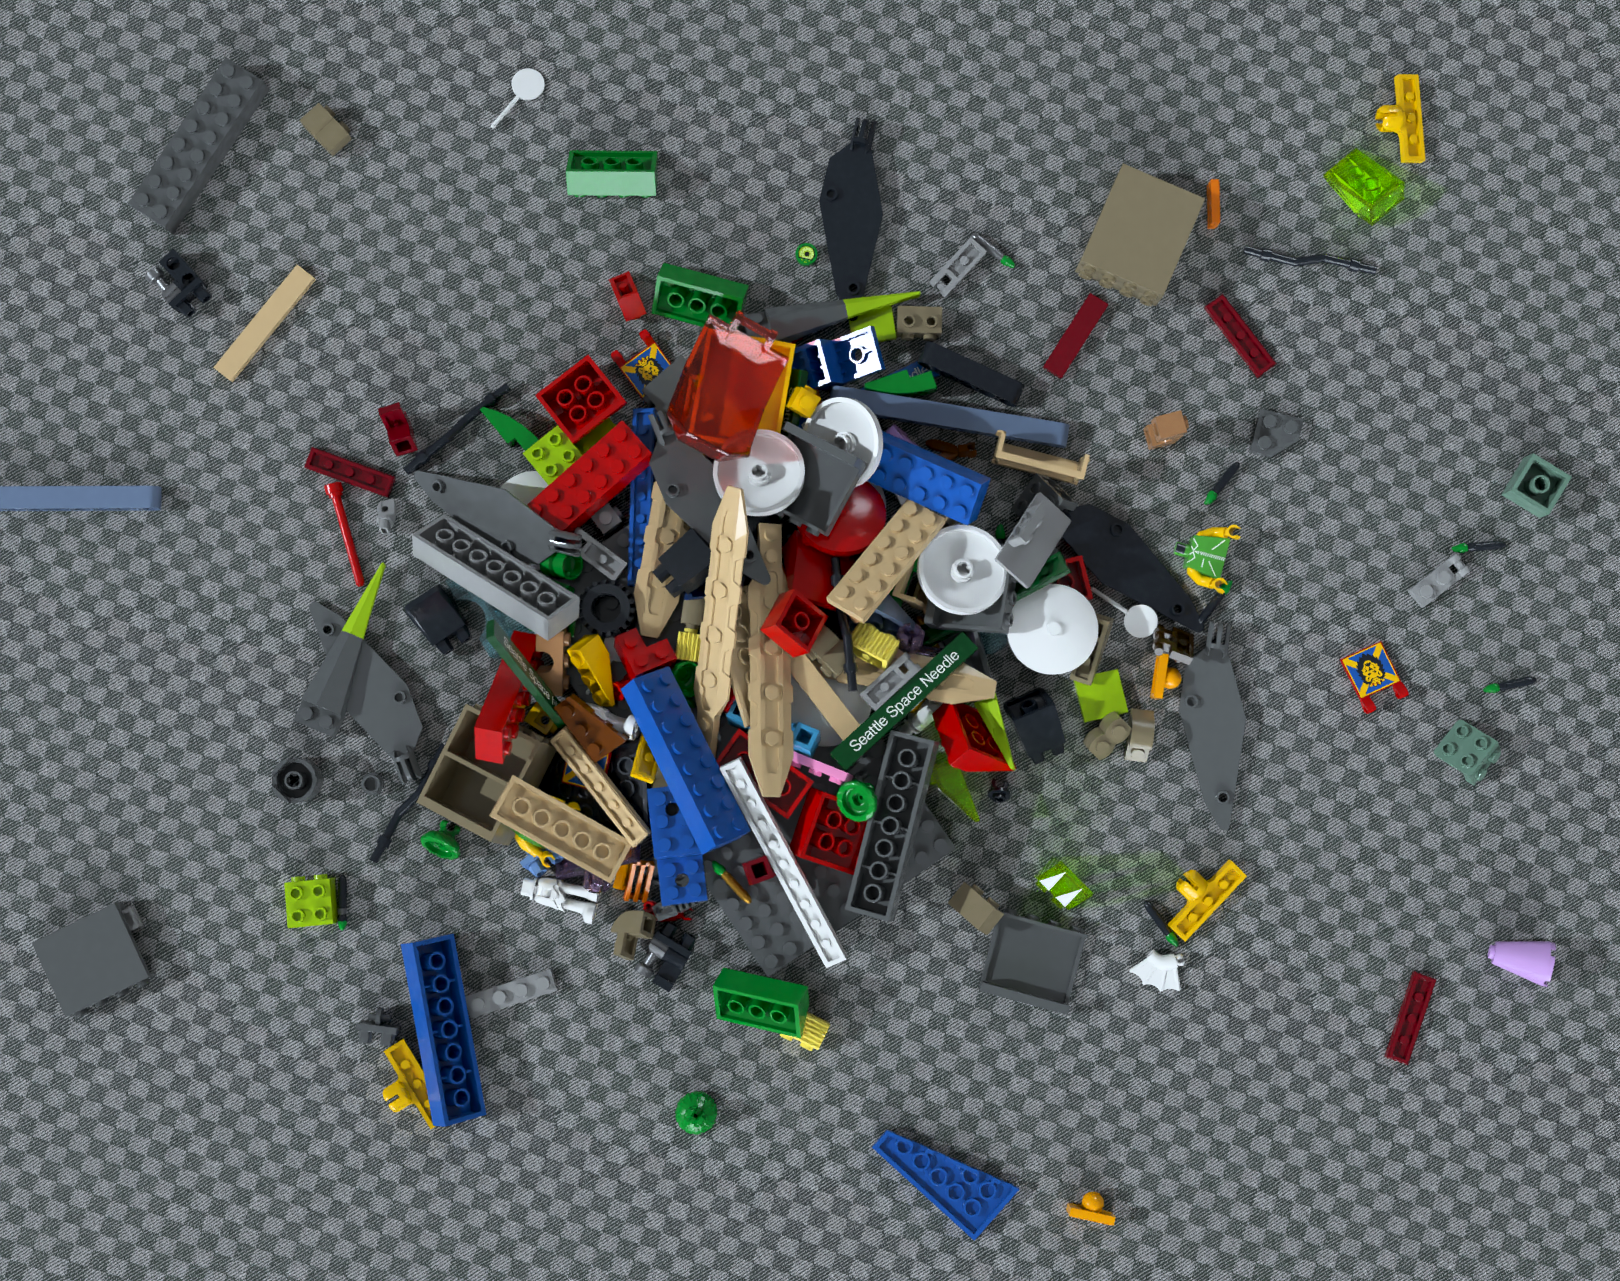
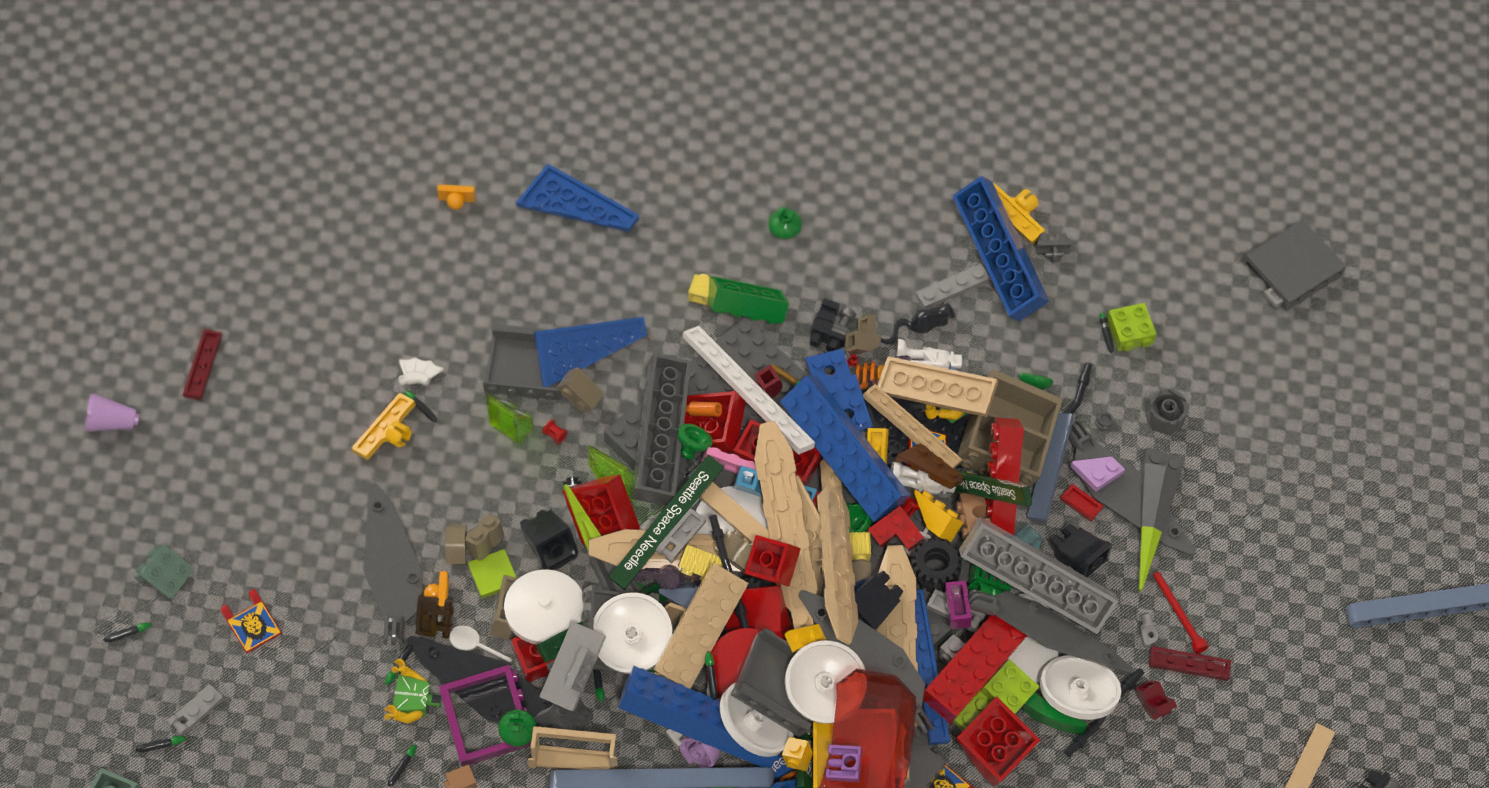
camera: 170 degrees right, 25 degrees down
(395, 713) = (1098, 471): none -> lavender wing
(423, 684) = (1081, 502): none -> red tile
(465, 693) = (1046, 484): none -> sand blue tile
(478, 448) = (1080, 687): none -> white dish
(557, 949) = (923, 321): none -> black animal
(593, 547) = (958, 604): none -> magenta brick
(747, 391) = (848, 753): none -> medium lavender brick
(772, 525) = (803, 636): none -> yellow plate
(839, 842) = (704, 409): none -> orange cylinder
(881, 507) = (709, 661): none -> black piece
(951, 451) = (655, 754): reddish brown piece -> none
(969, 968) = (582, 345): none -> blue wing
(1010, 863) = (555, 432): none -> red bush
(1098, 498) = (517, 735): none -> green hair
(1163, 514) = (493, 751): none -> magenta window

